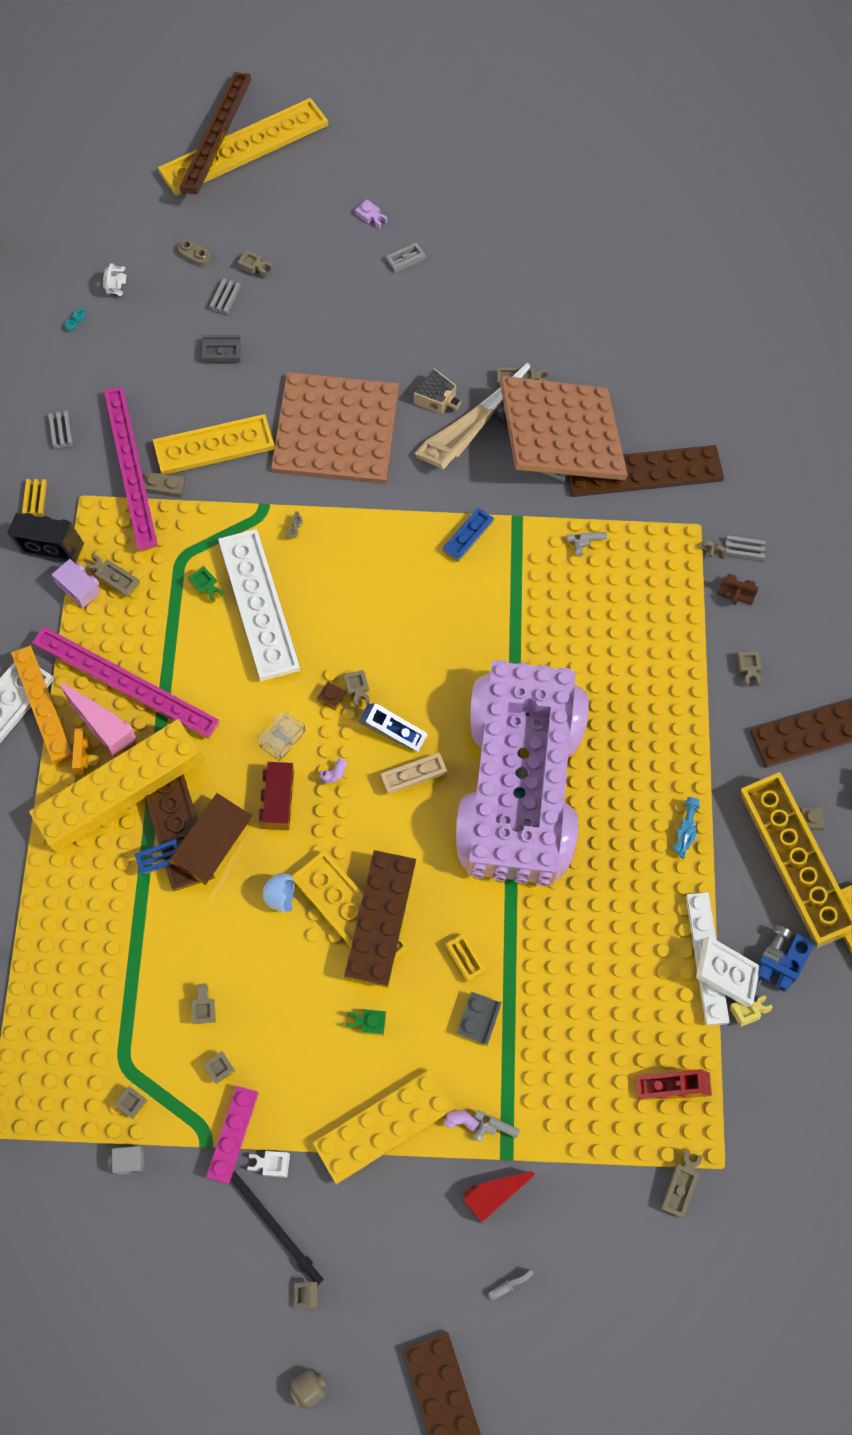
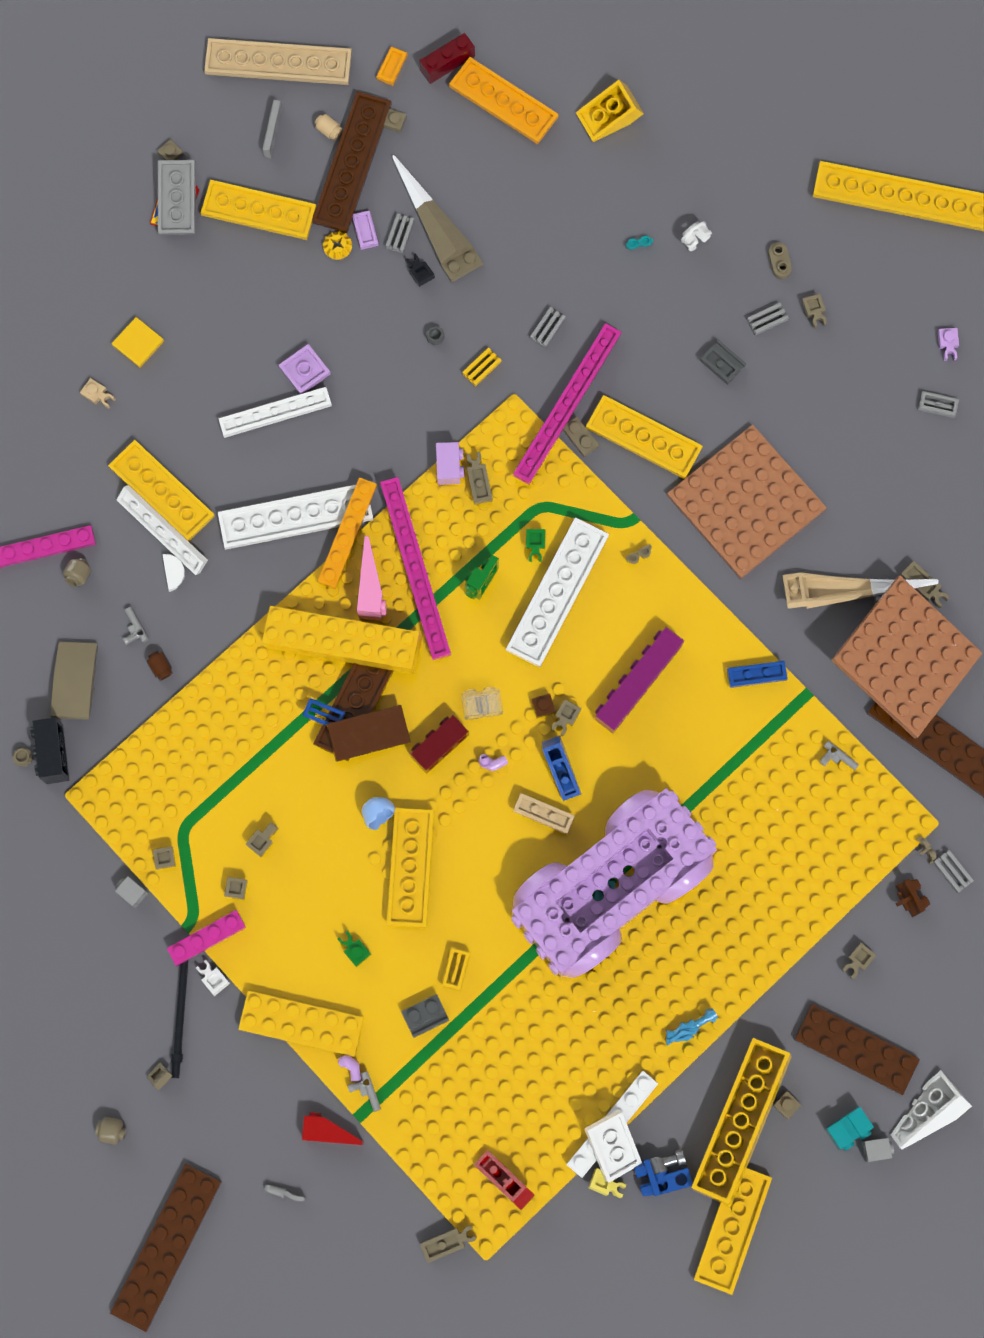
camera: 50 degrees right, 10 degrees up
(45, 537) = (458, 410): black brick -> none
(80, 759) = (335, 598): light orange plate -> none
(186, 643) = (479, 579): none -> green plate
(215, 133) = (892, 168): reddish brown plate -> none
(380, 919) = (424, 891): reddish brown plate -> none
(386, 611) = (639, 680): none -> magenta brick
(436, 393) = (846, 542): torso -> none

